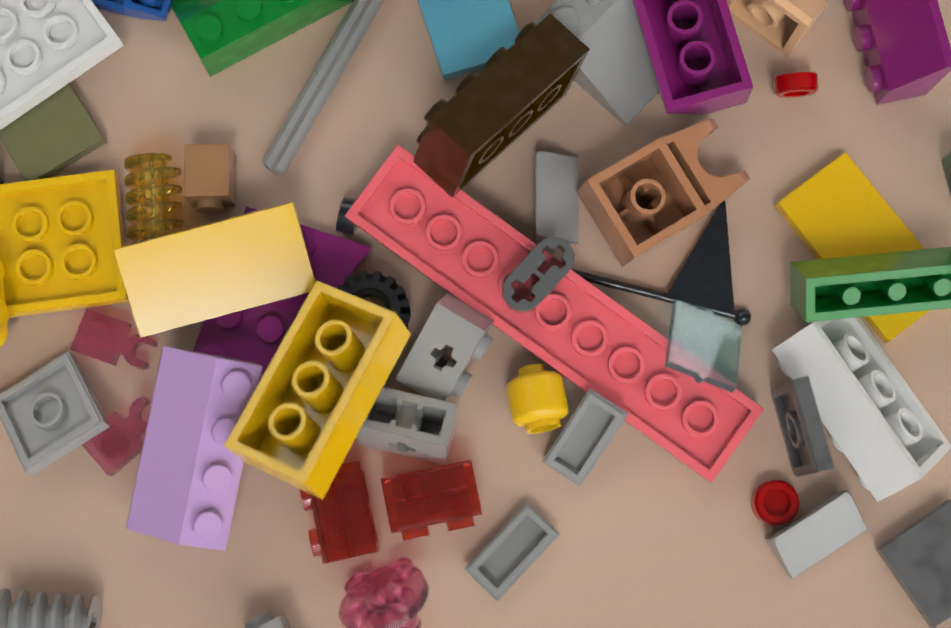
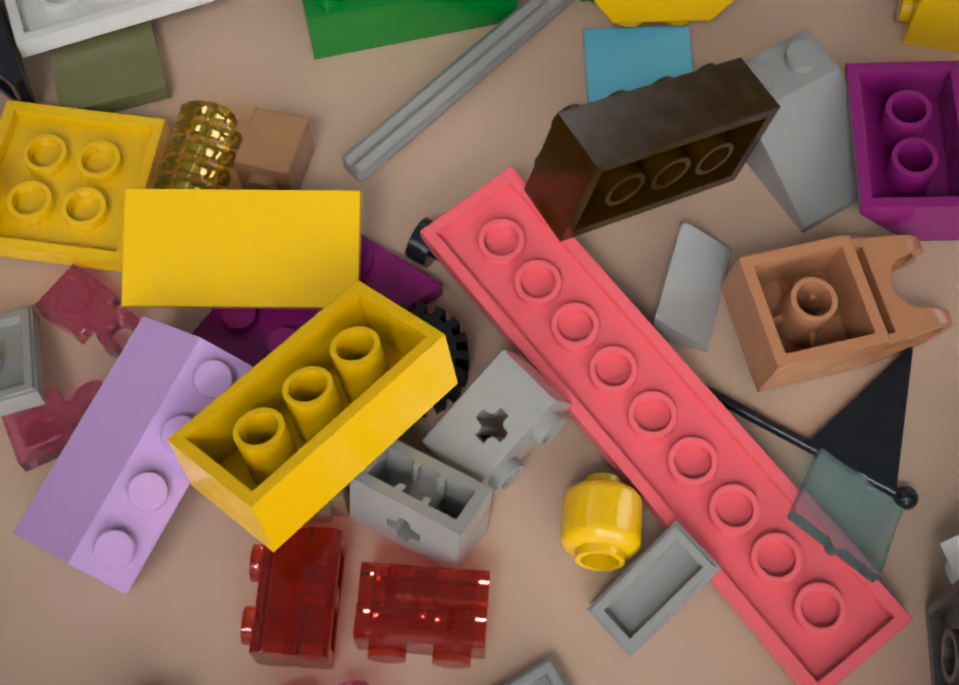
camera: 20 degrees right, 15 degrees down
(530, 267) = (638, 347): dark grey beam -> none

